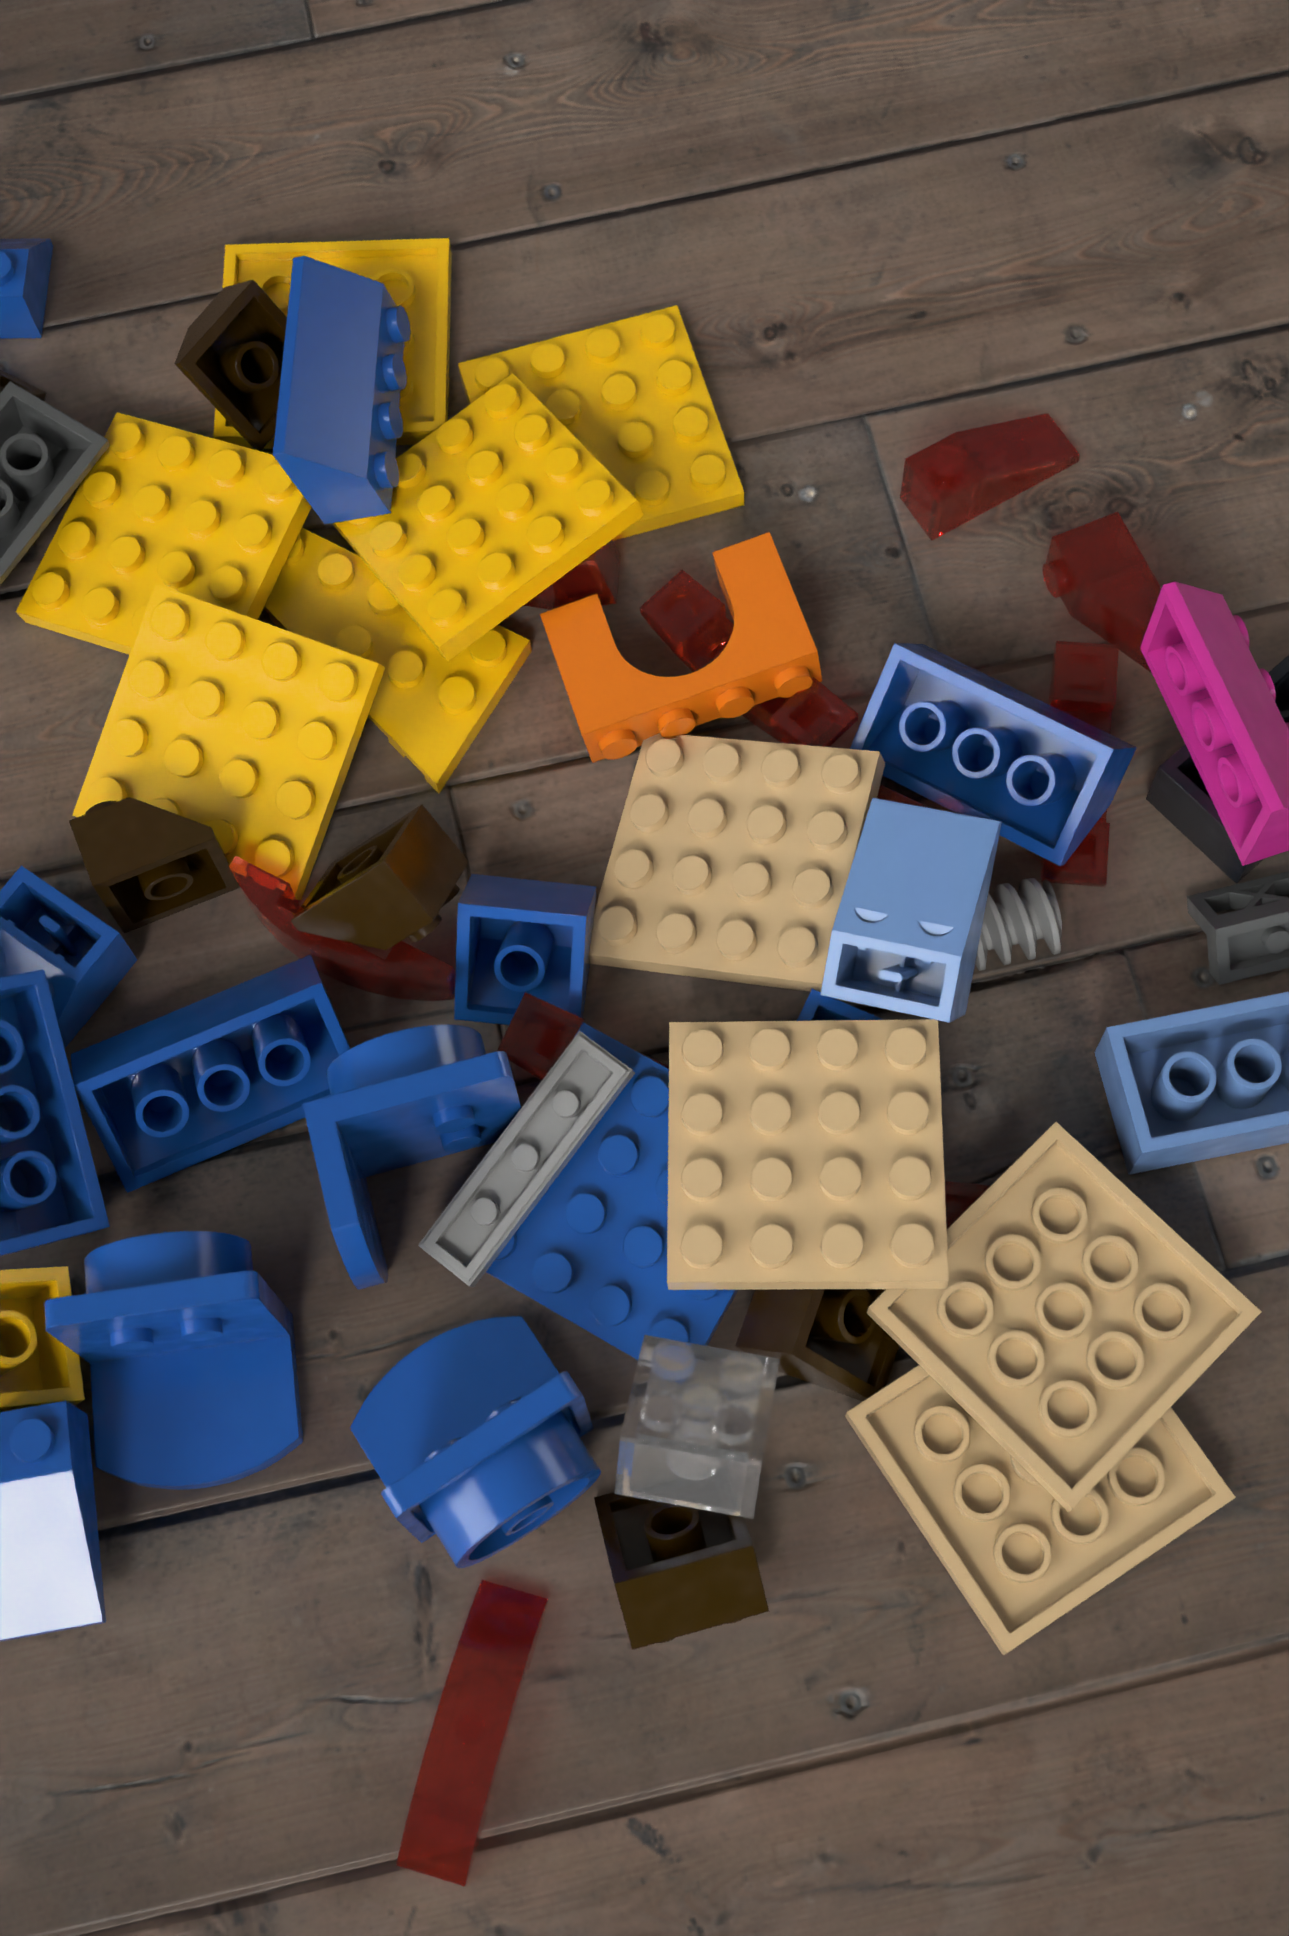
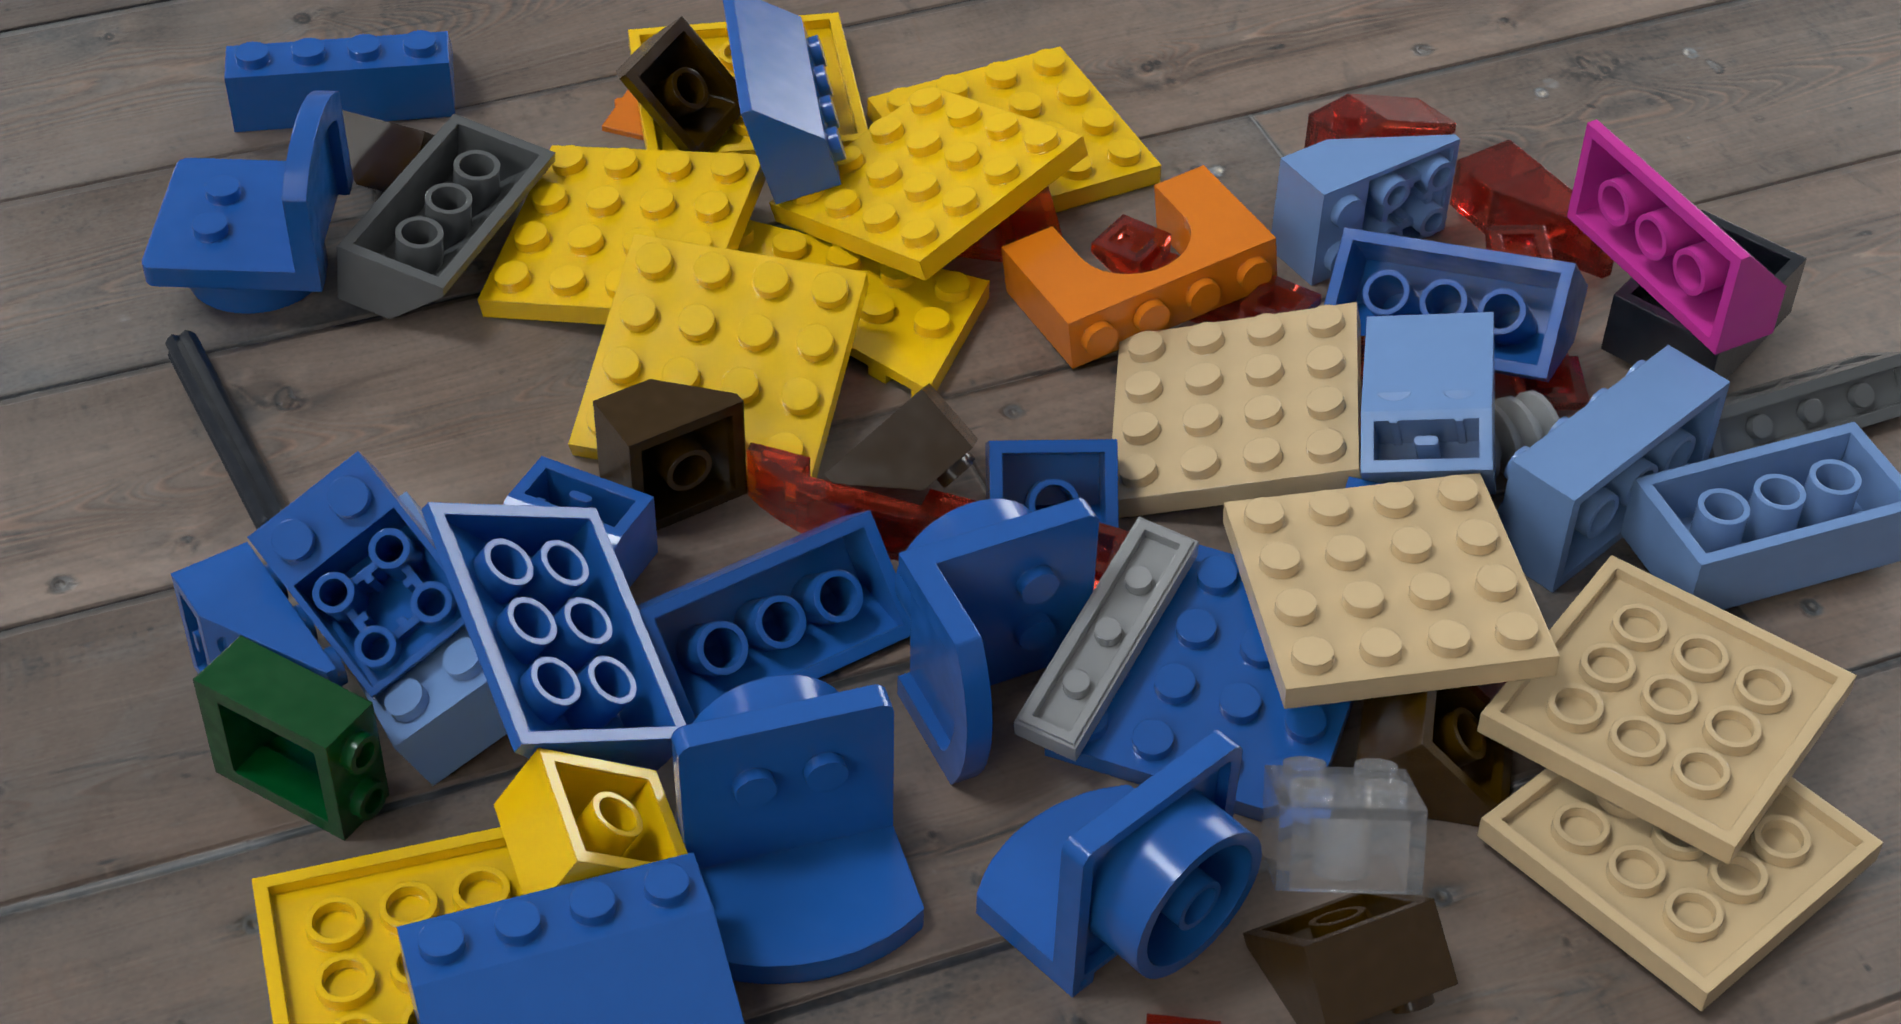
camera: 15 degrees left, 25 degrees down
(932, 585) = (1363, 185): none -> medium blue slope
(1108, 978) = (1575, 483): none -> medium blue brick

